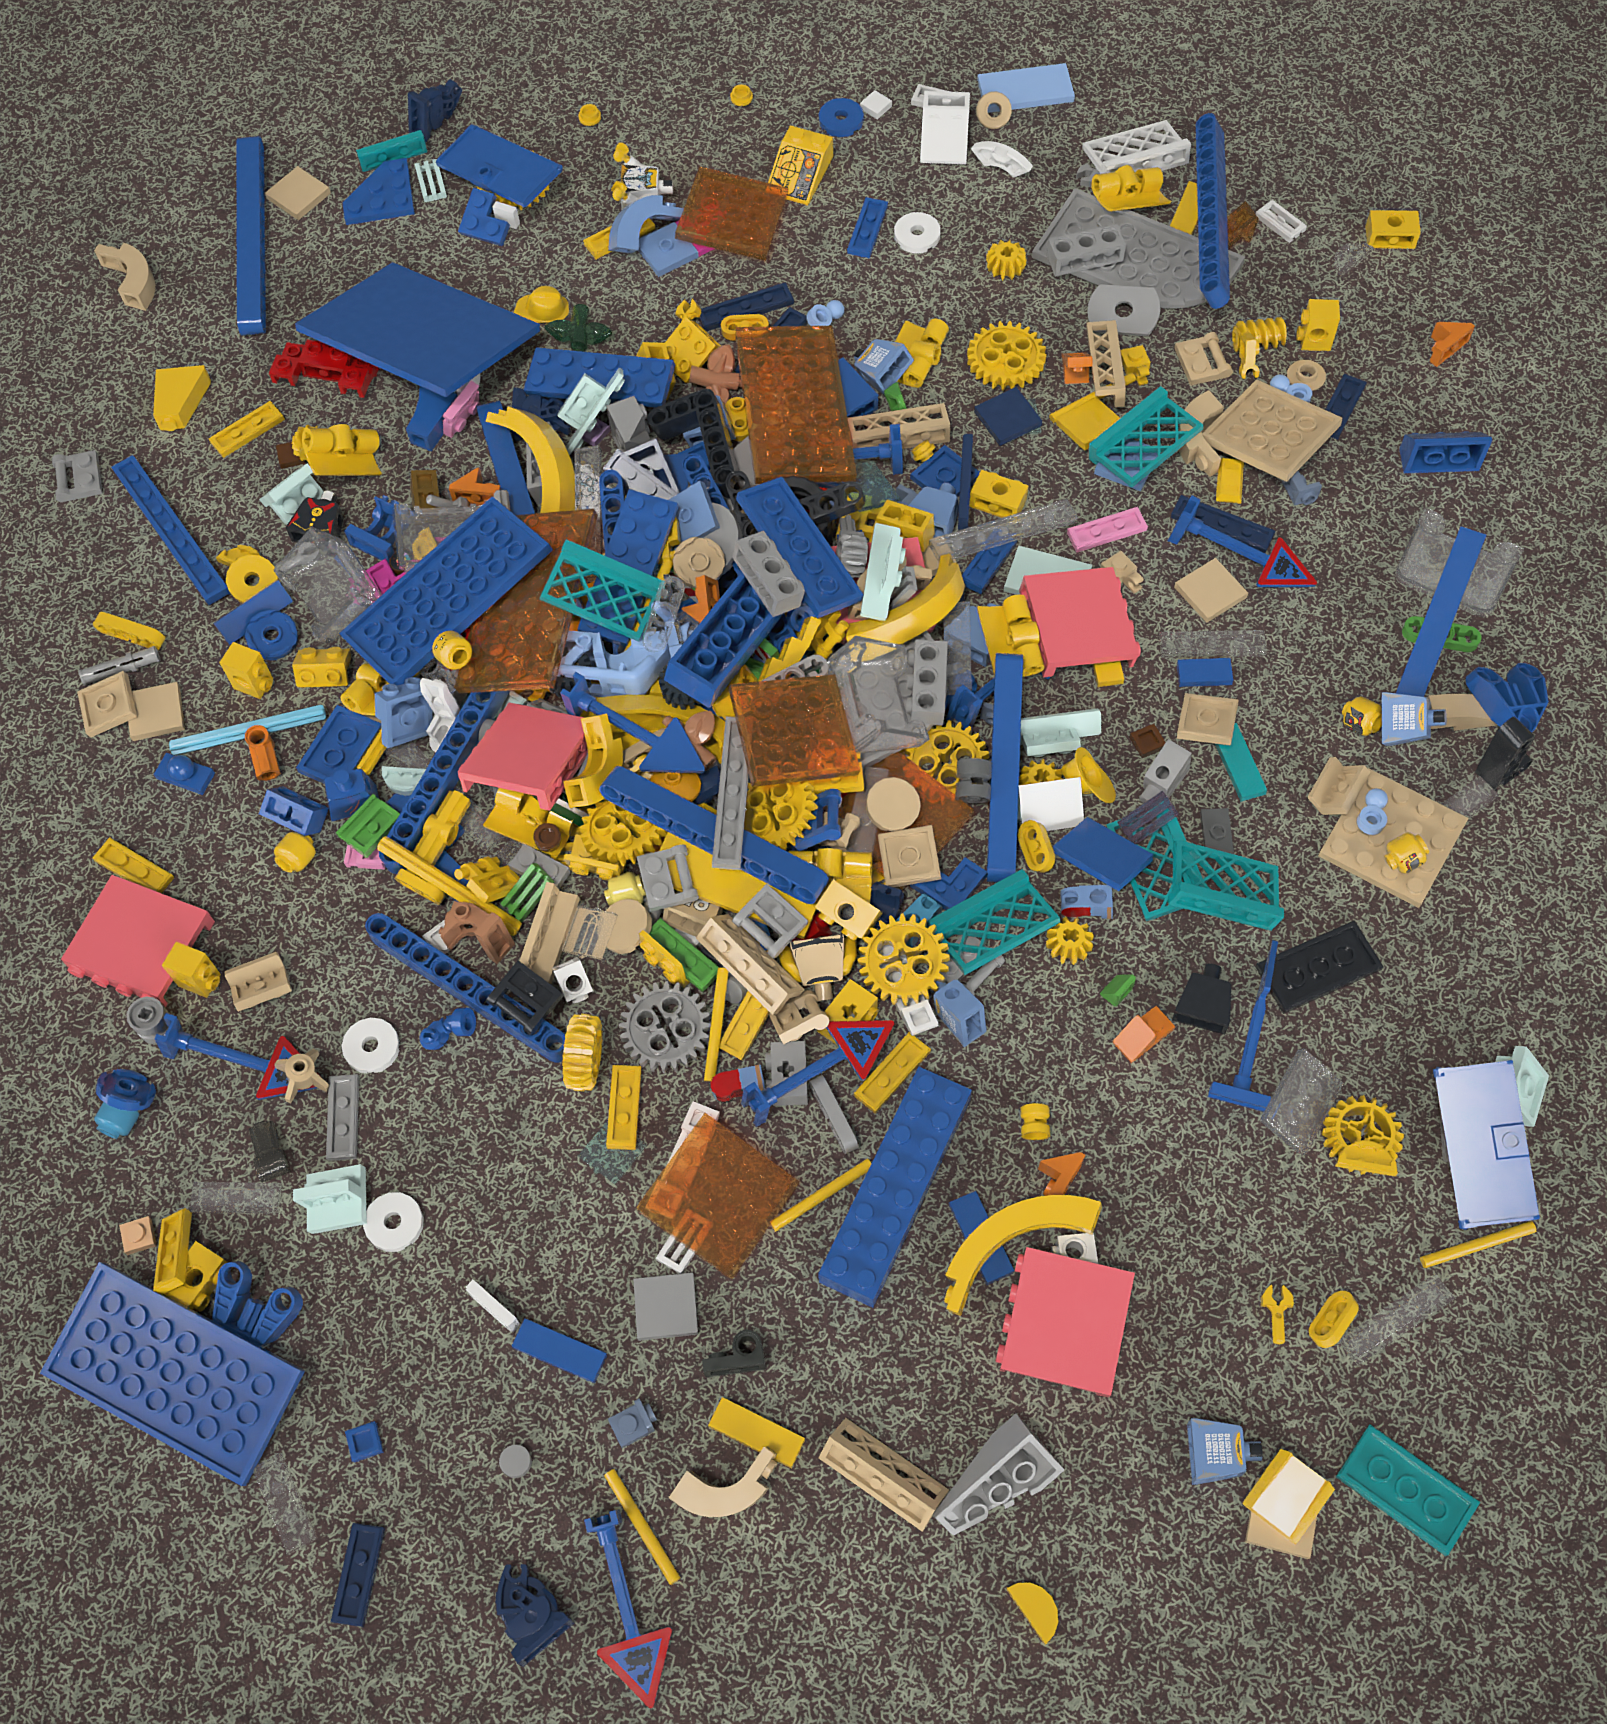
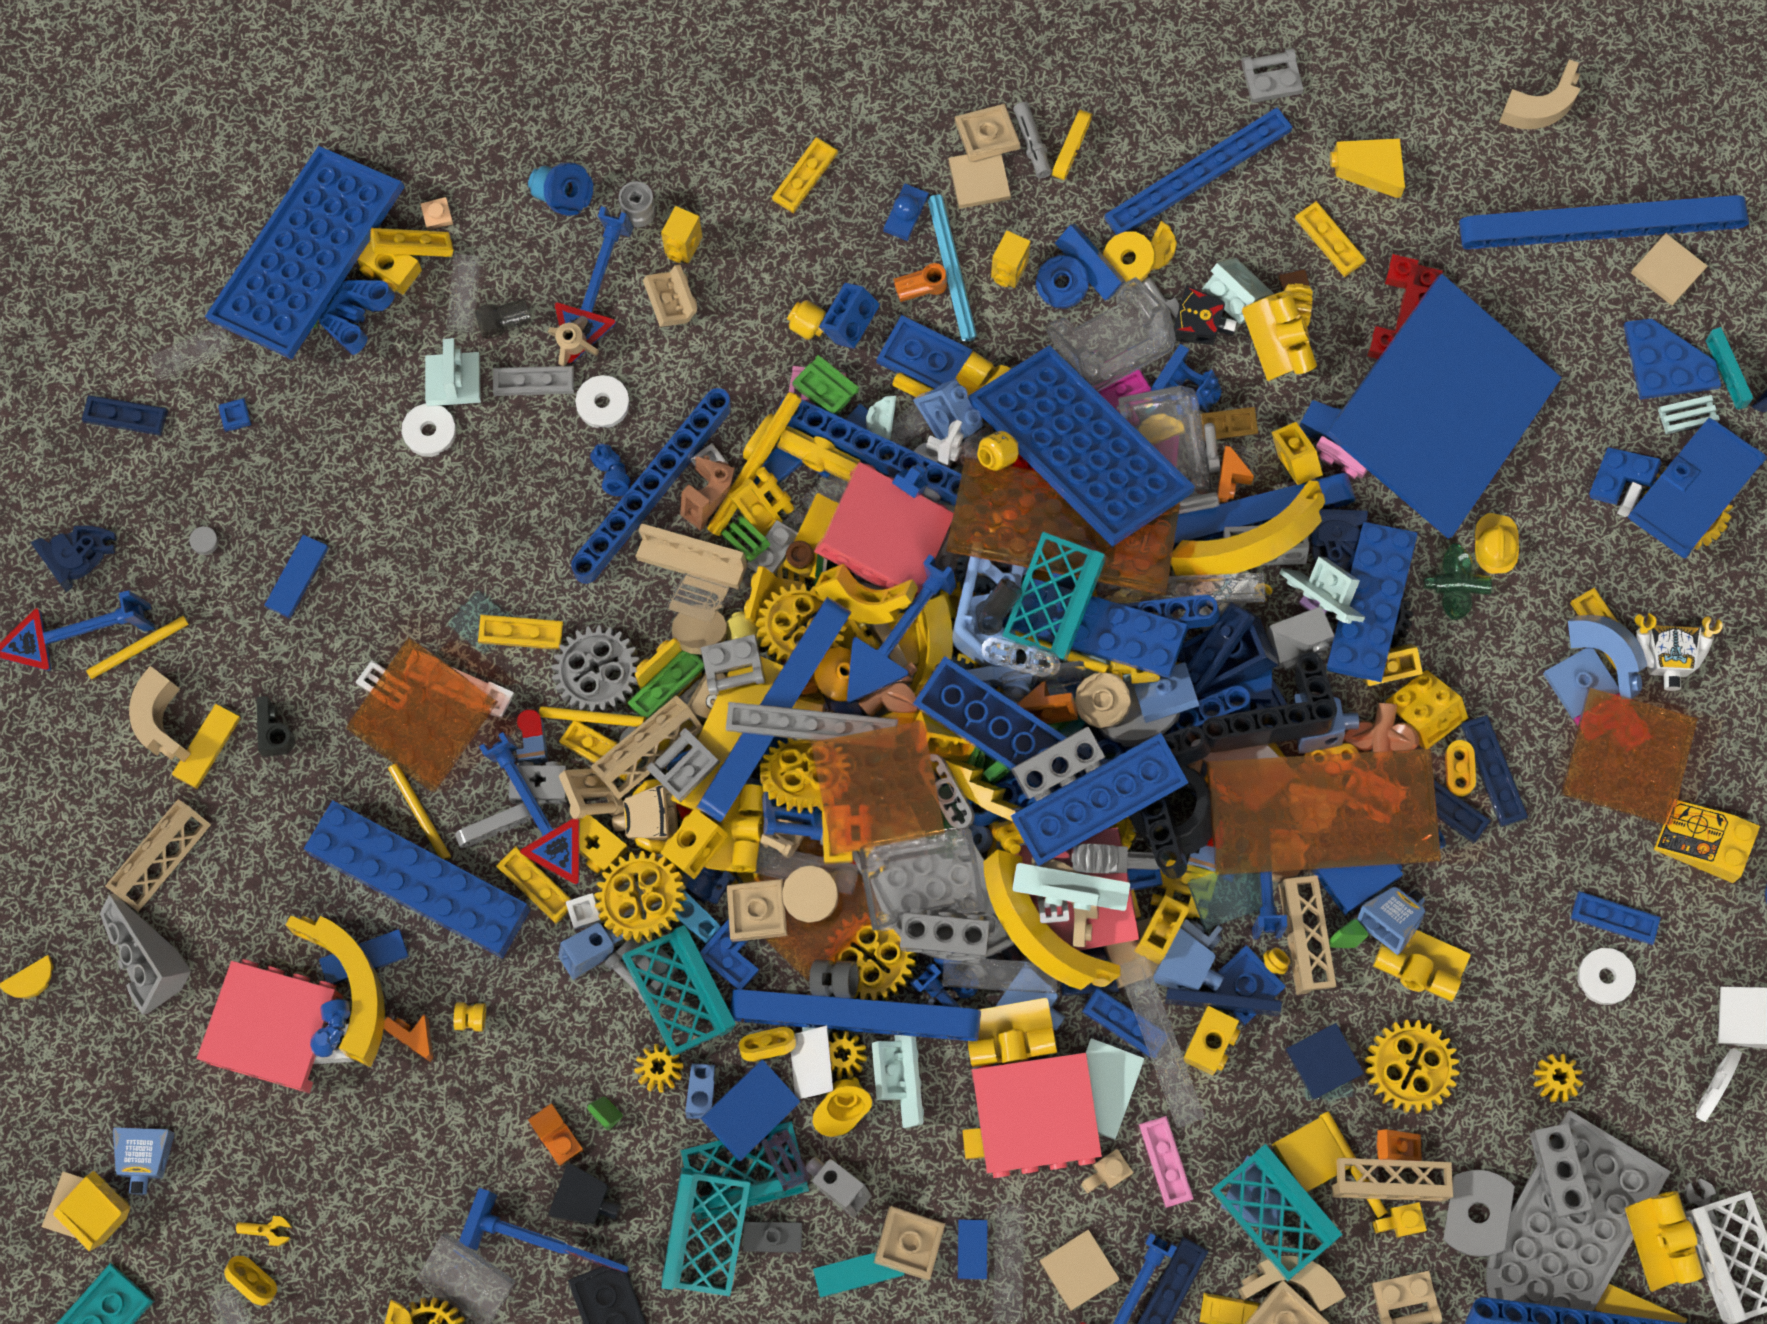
camera: 90 degrees right, 10 degrees up
(131, 937) = (724, 183): coral panel -> none
(321, 667) = (1022, 331): yellow bracket -> none
(348, 792) = (864, 366): blue torso -> none
(457, 437) = (1297, 453): none -> yellow brick
(476, 730) = (911, 480): none -> blue tile
(492, 1306) = (339, 517): white tile -> none
(531, 990) = (629, 540): black plate -> none
(569, 968) = (658, 581): white brick -> none
(582, 1052) = (569, 590): yellow gear -> none
(614, 645) = (998, 606): none -> clear smoke piece
(633, 1423) = (225, 639): sand blue bracket -> none
(665, 1306) = (327, 669): light grey tile -> none
(684, 310) = (1484, 705): yellow bar -> none
(823, 316) = (1487, 871): light blue plate -> none
(1083, 1247) = (327, 1038): none -> blue arm
(1147, 740) = (890, 1177): reddish brown tile -> none

